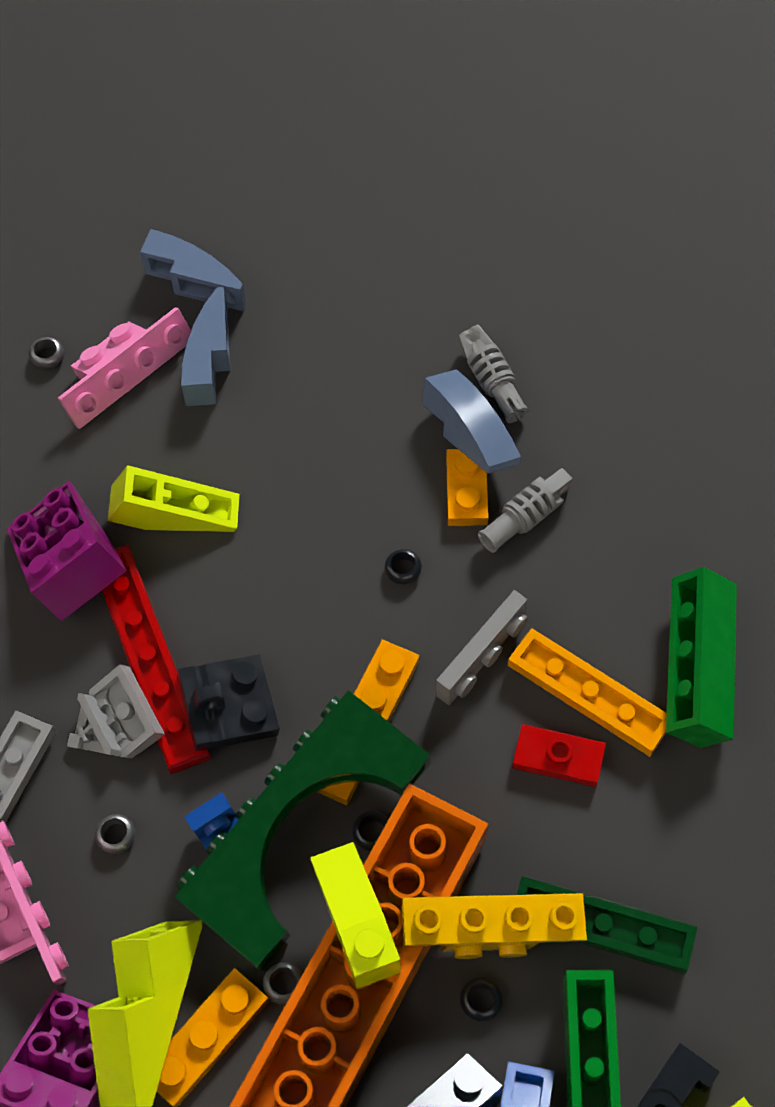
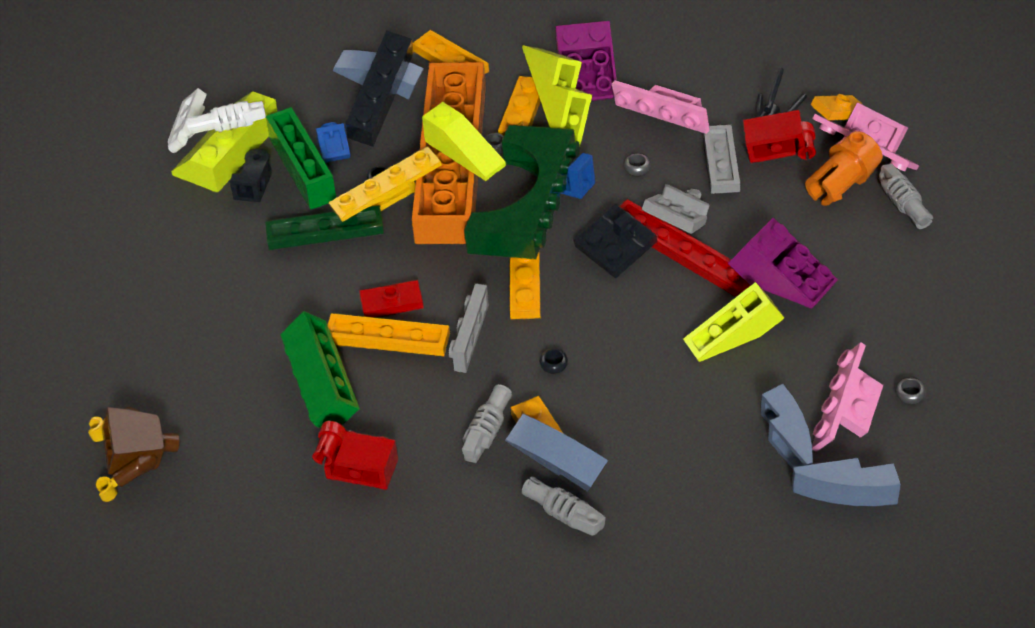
camera: 155 degrees right, 15 degrees down
(697, 524) = (355, 456): none -> red hinge

